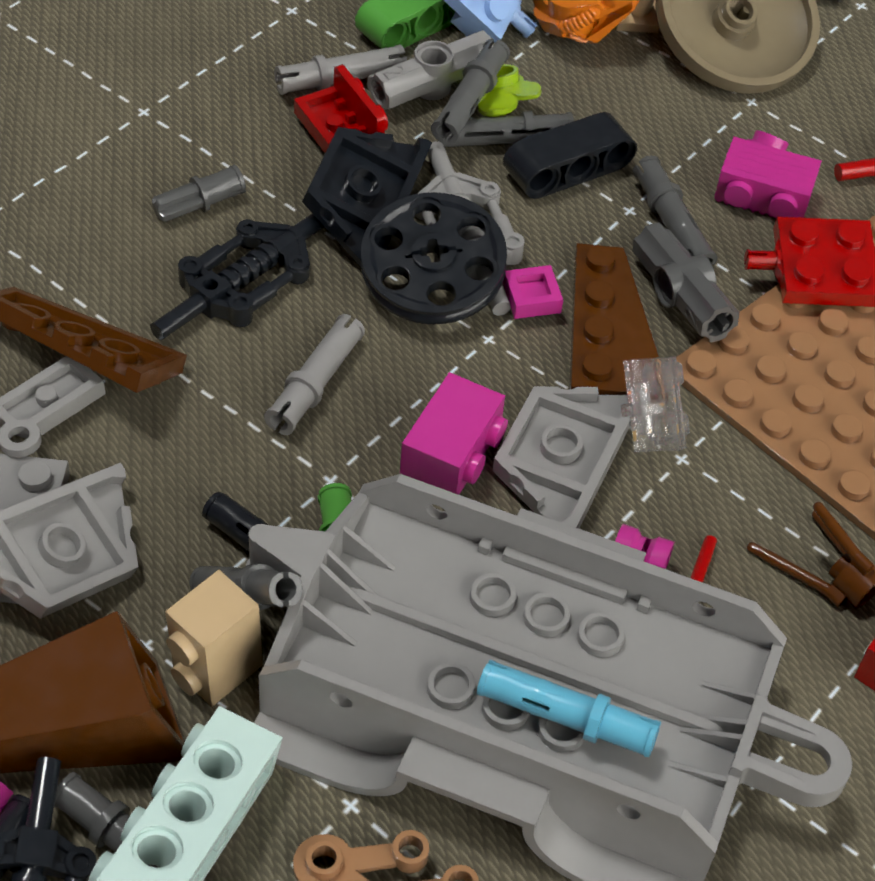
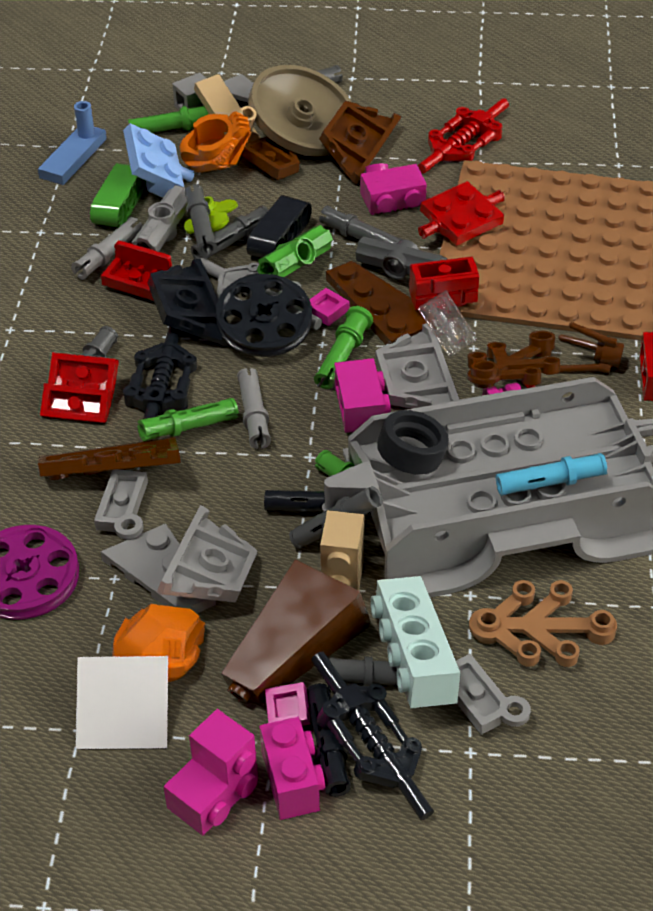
camera: 30 degrees left, 5 degrees down
(137, 228) = (79, 387): none -> red slope
(217, 341) = (175, 422): none -> bright green pin
(440, 514) = (408, 457): none -> black tyre
(520, 348) = (347, 338): none -> bright green pin
(574, 199) = (296, 253): none -> bright green piece
(637, 505) = (516, 366): none -> reddish brown plant
(647, 58) = (271, 158): none -> reddish brown wing
(705, 343) = (455, 276): none -> red brick
(784, 84) = (356, 137): none -> reddish brown wing

